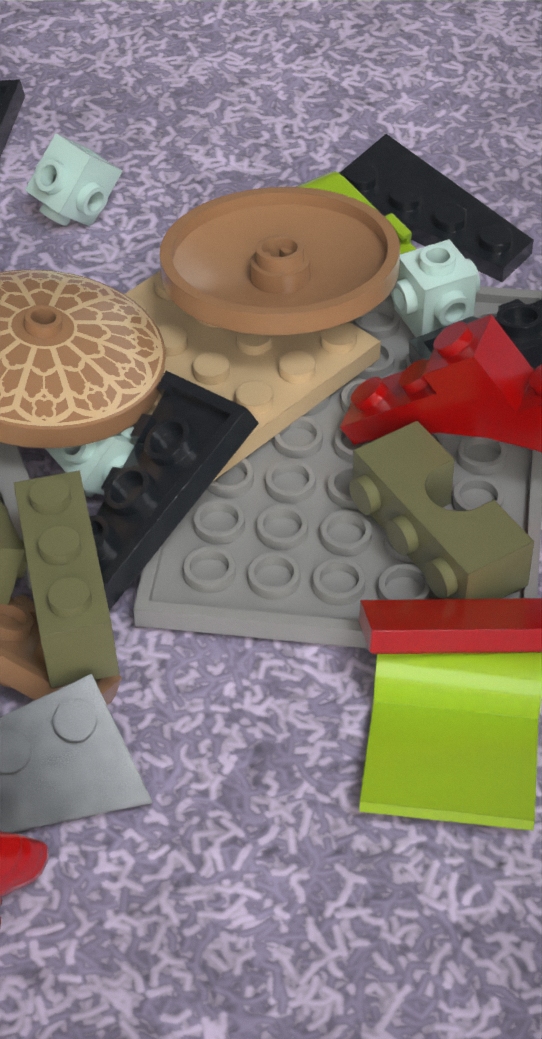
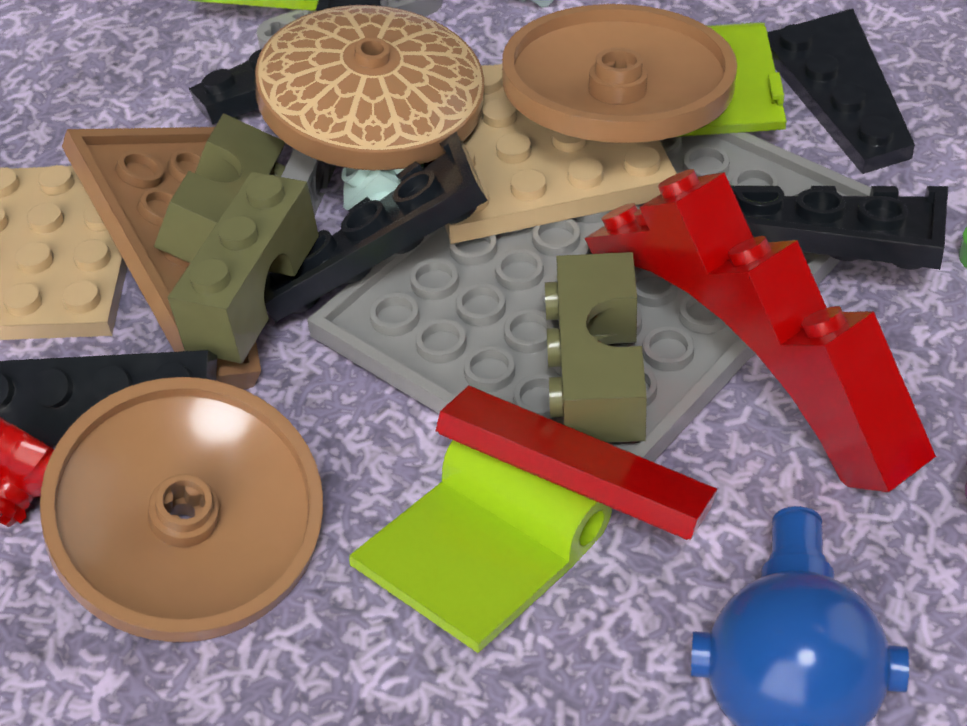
camera: 35 degrees right, 0 degrees up
(174, 835) = (168, 453): none -> medium nougat dish
(435, 287) = (759, 138): light aqua brick -> none

